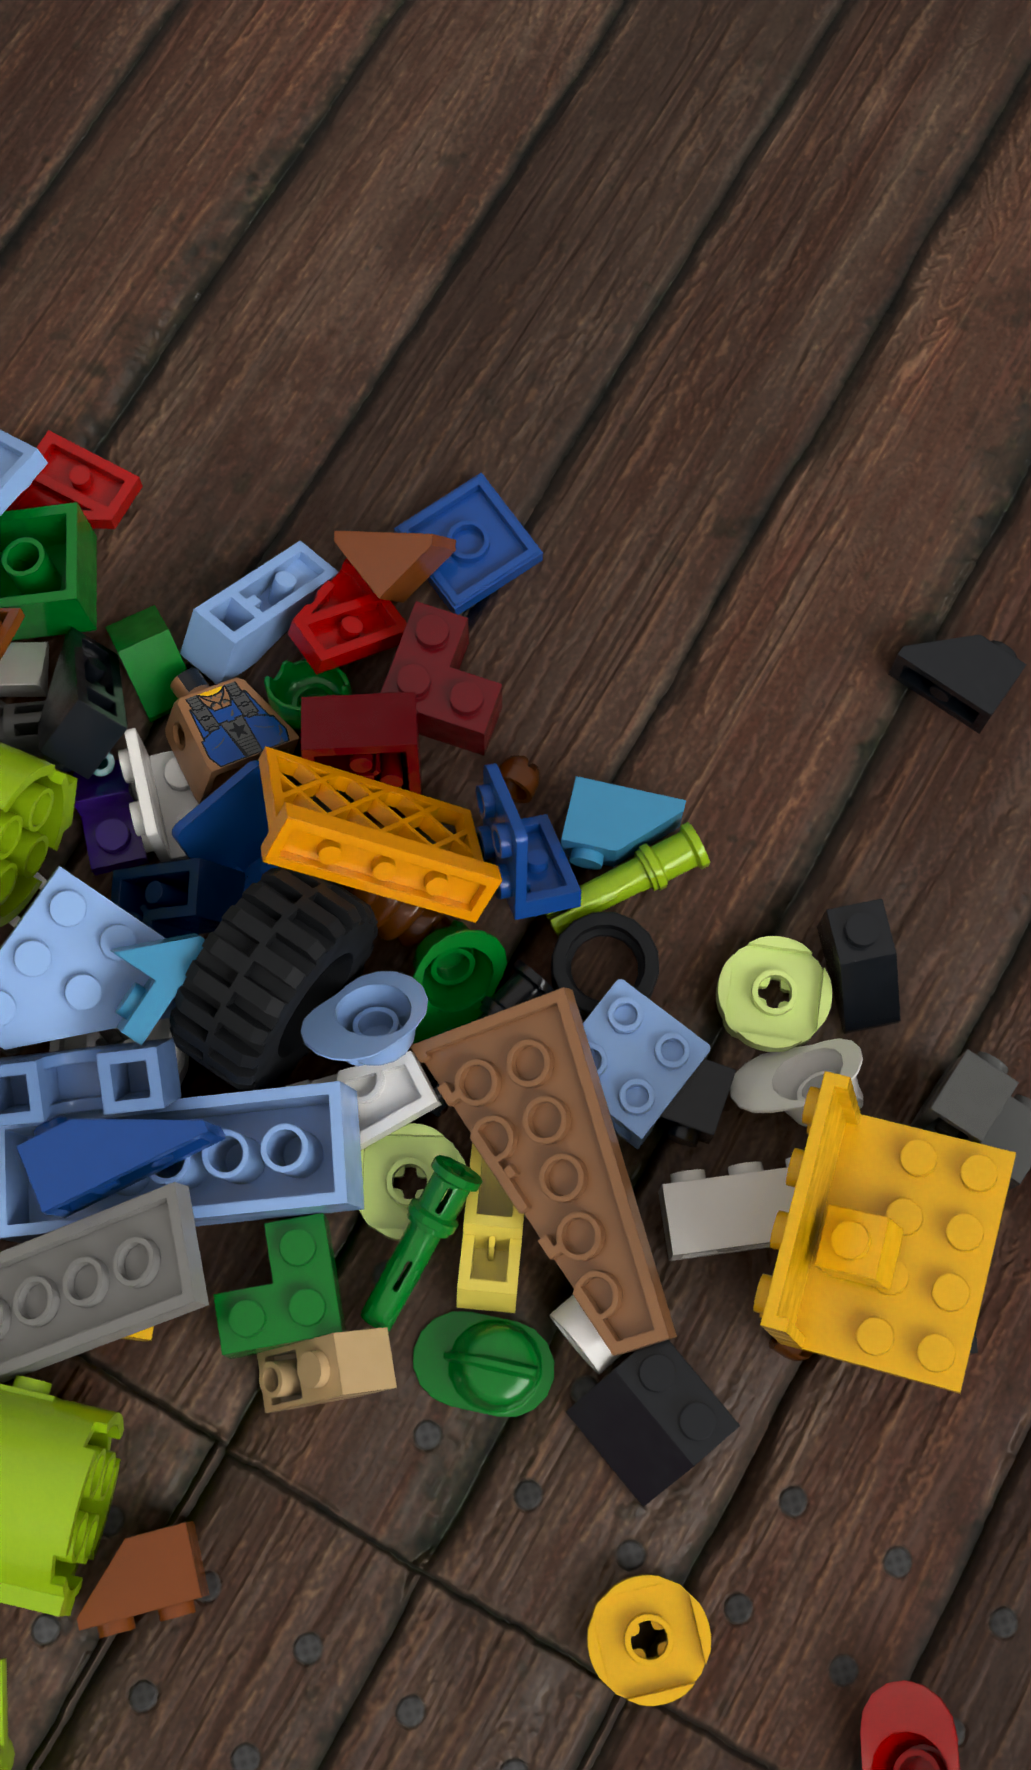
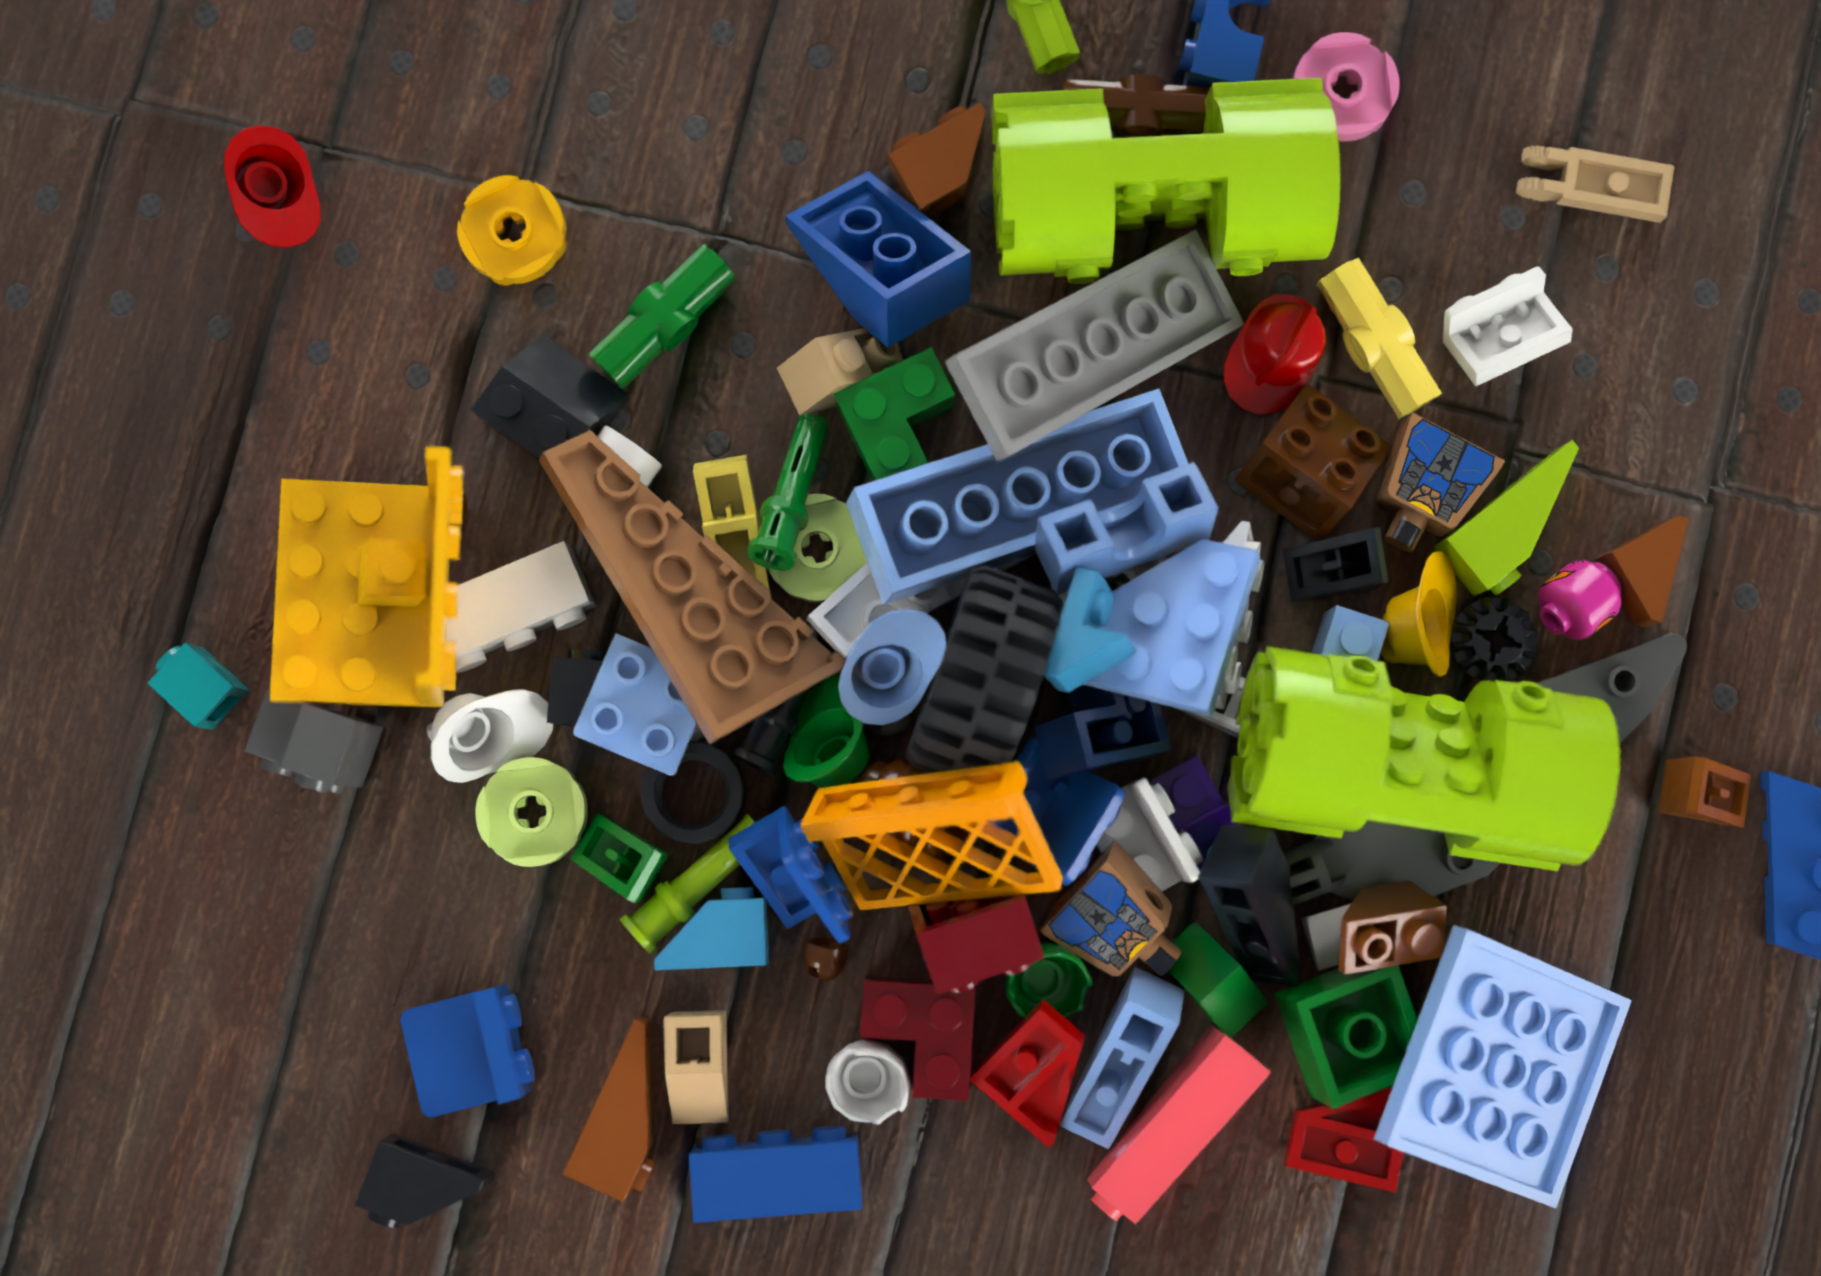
camera: 165 degrees right, 10 degrees up
(91, 1159) = (1092, 466): blue slope -> none
(225, 537) = (1175, 1125): none -> coral slope
(245, 1483) = (883, 257): none -> blue slope
(394, 562) = (1009, 1146): dark orange slope -> none
(483, 1364) = (711, 416): green piece -> none
(488, 538) = (941, 1193): blue tile -> none
(505, 1486) = (662, 316): none -> green piece
(507, 651) = (868, 1081): none -> white hair
(618, 593) = (775, 1175): none -> blue brick
(666, 712) = (697, 1066): none -> tan slope
(694, 922) = (620, 858): none -> green slope
(763, 664) = (621, 1126): none -> dark orange slope
(861, 965) = (456, 861): black slope -> none
(888, 783) = (467, 1051): none -> blue bracket

